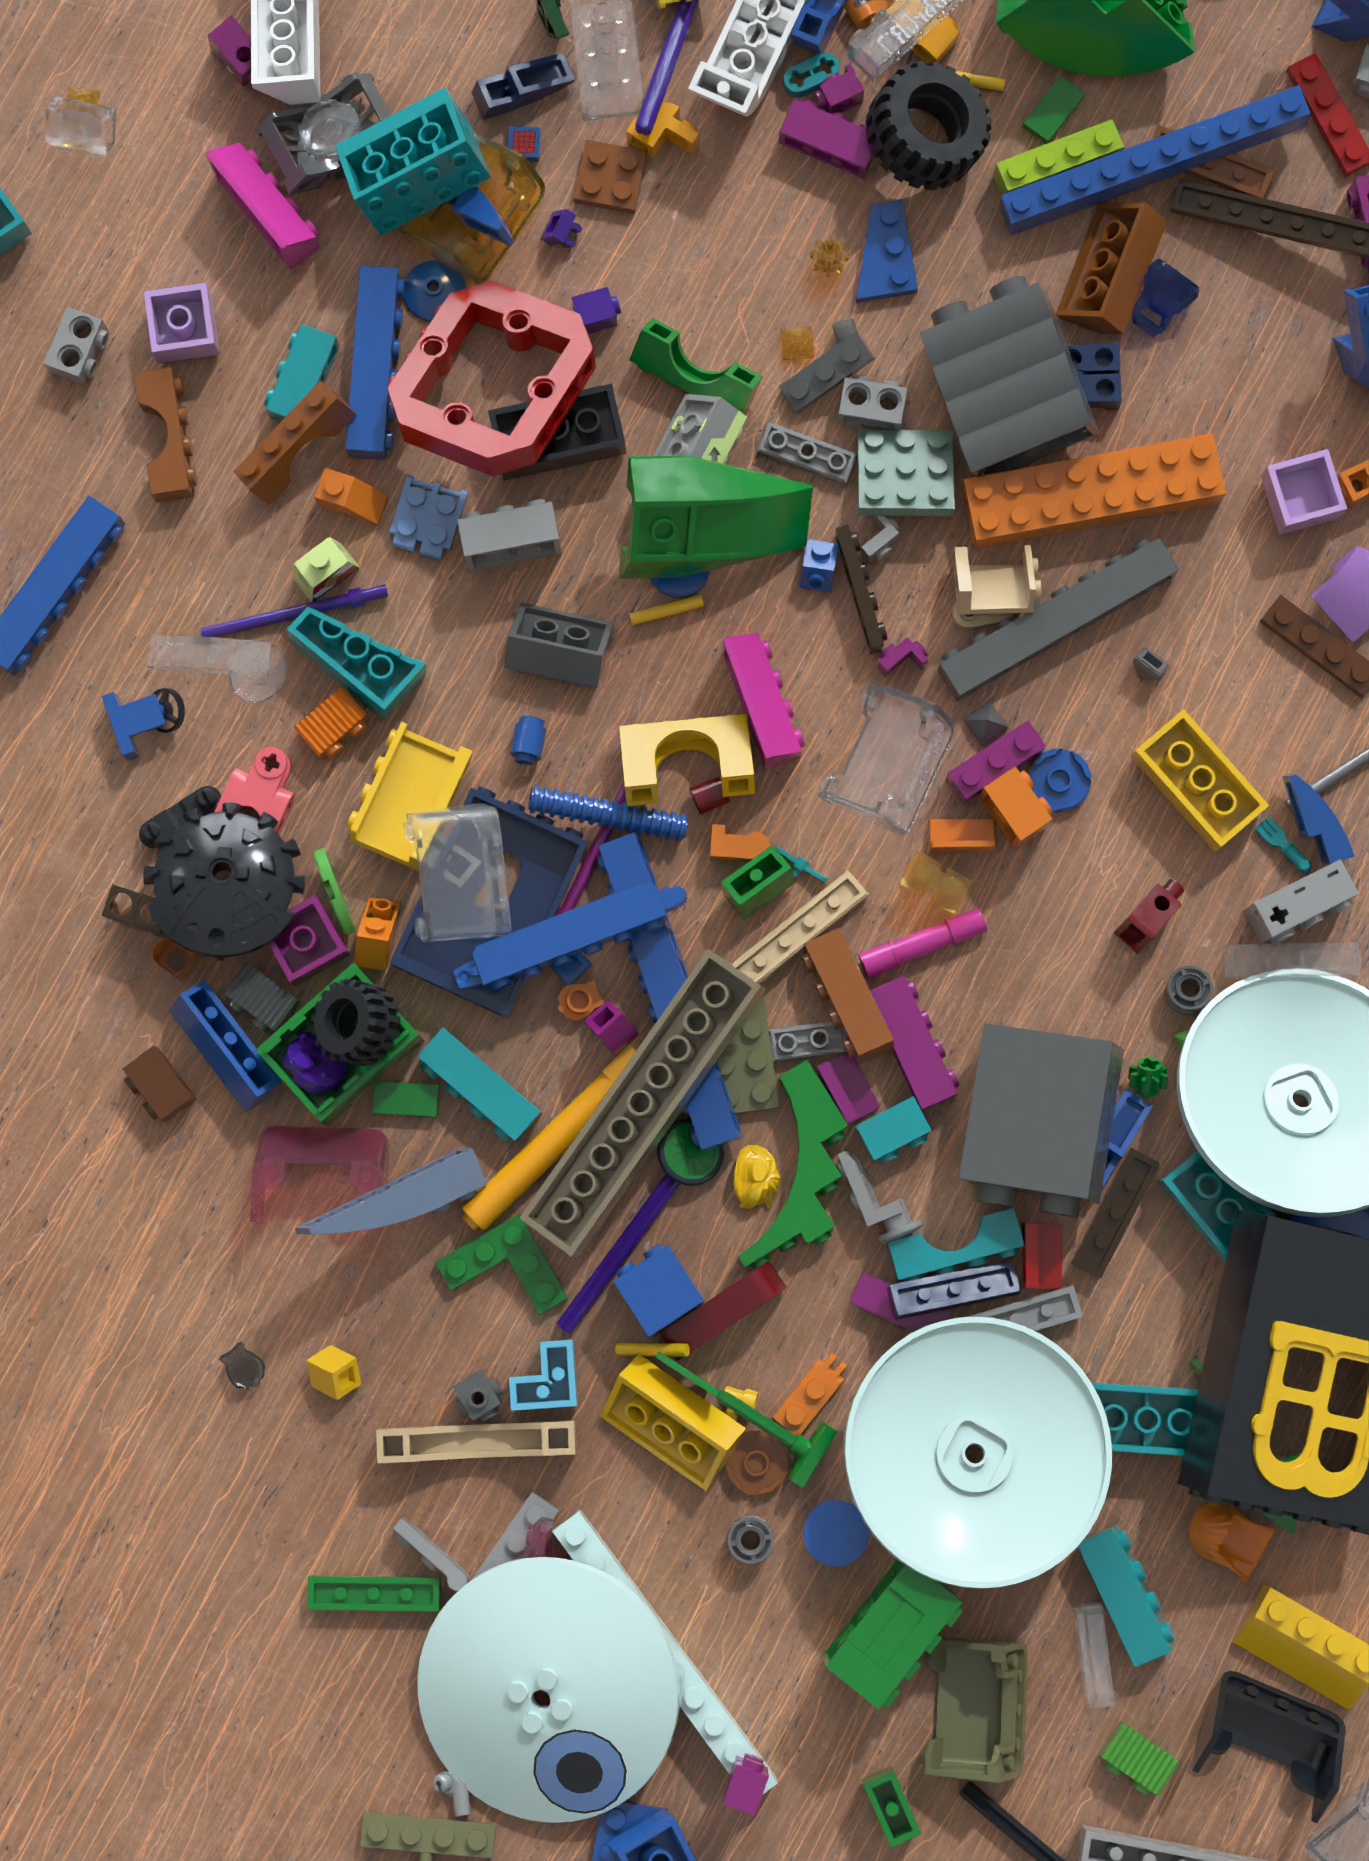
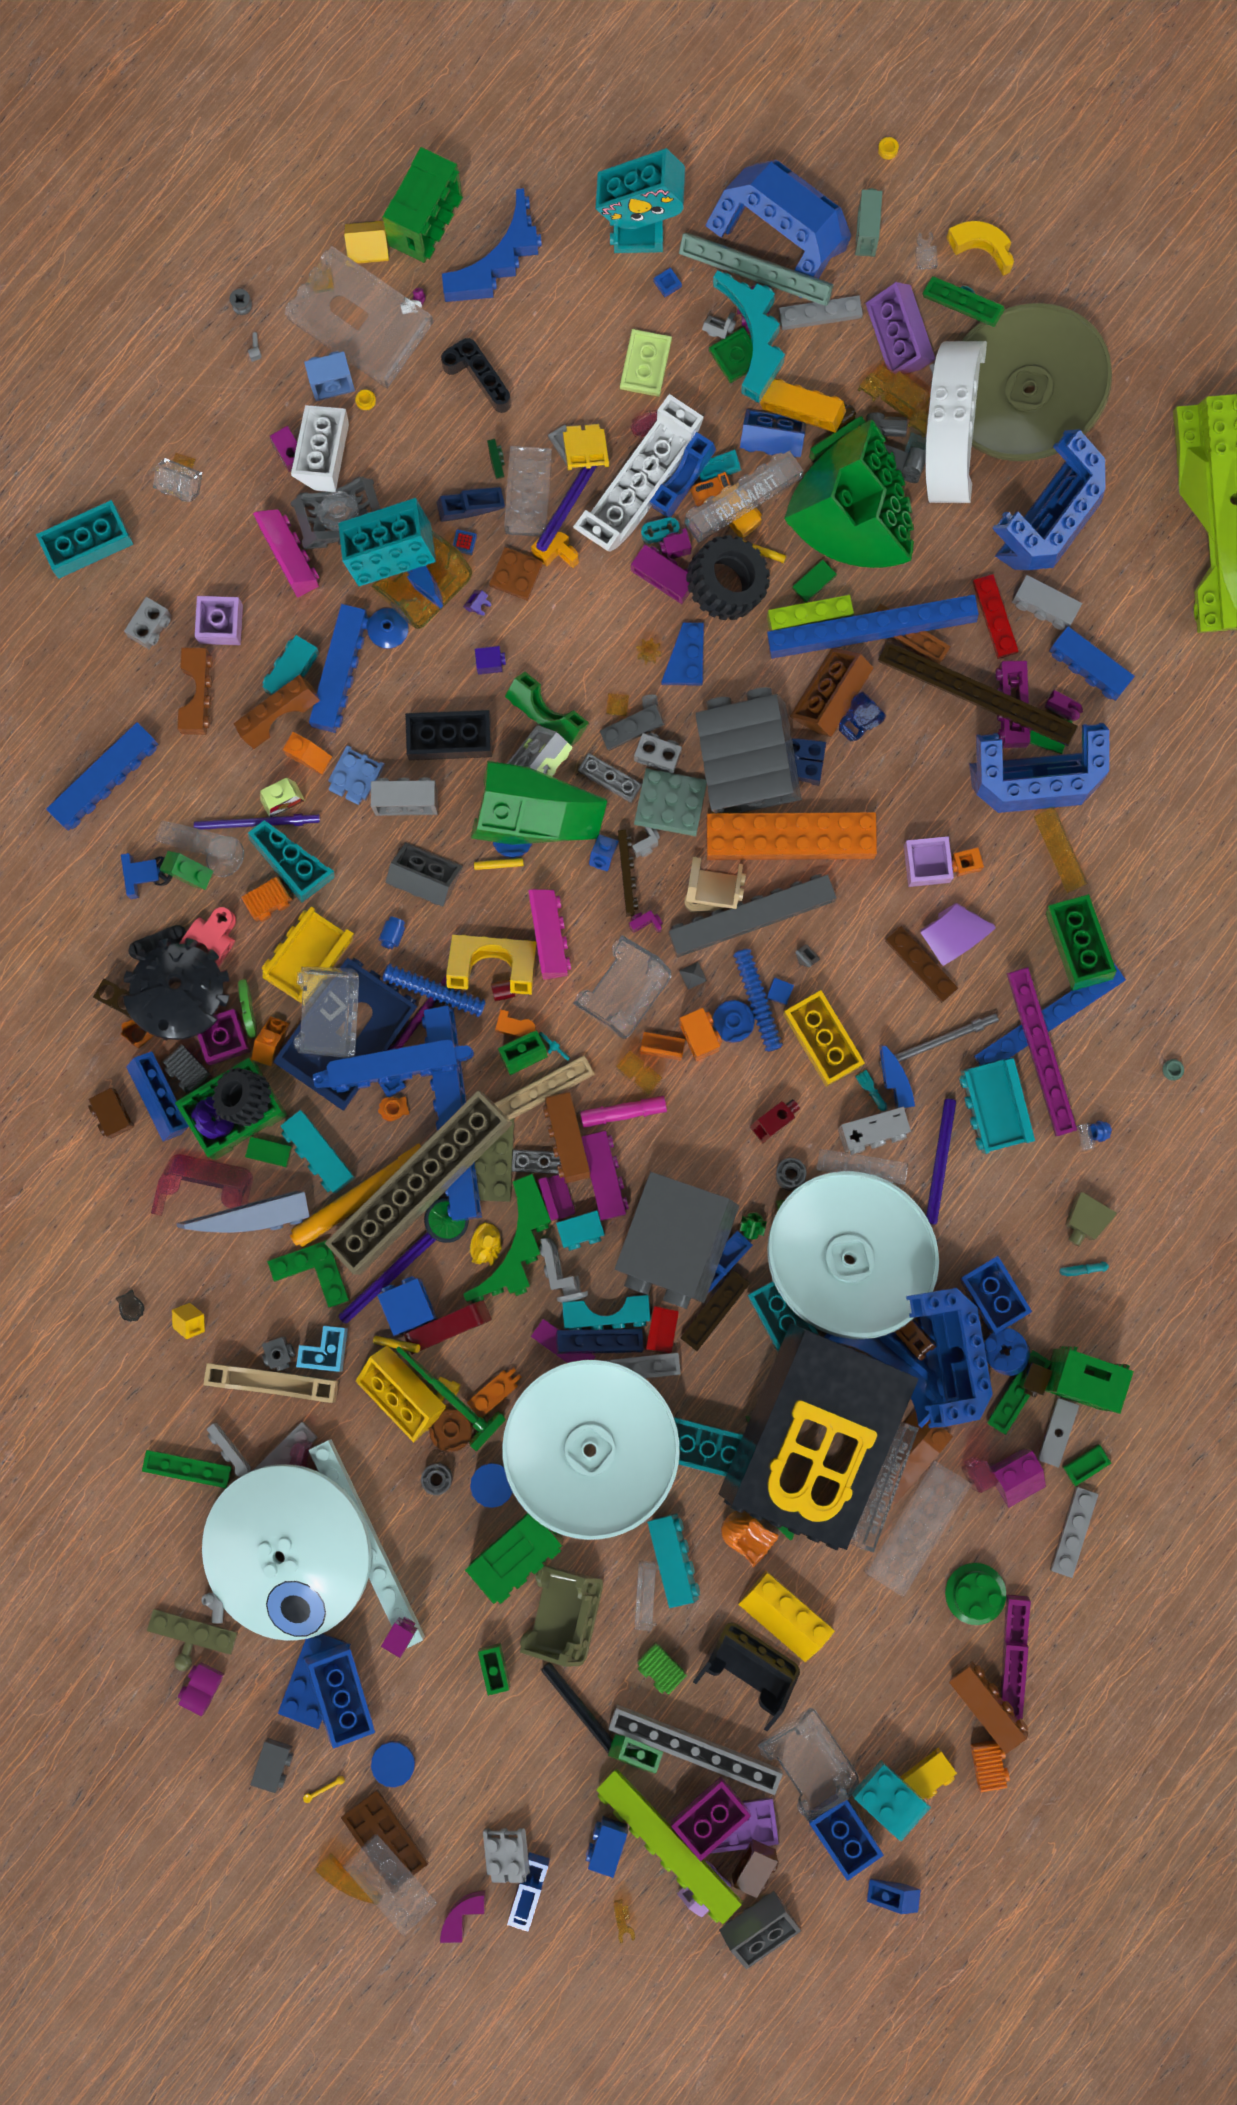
camera: 10 degrees right, 0 degrees up
(205, 701) = (186, 870): none -> green brick
(525, 323) = (441, 661): panel -> none
(611, 1027) = (409, 1130): magenta brick -> none
(995, 760) = (701, 997): magenta brick -> none
(1090, 741) = (758, 1000): none -> blue piece
(1120, 723) = (780, 991): none -> blue tile

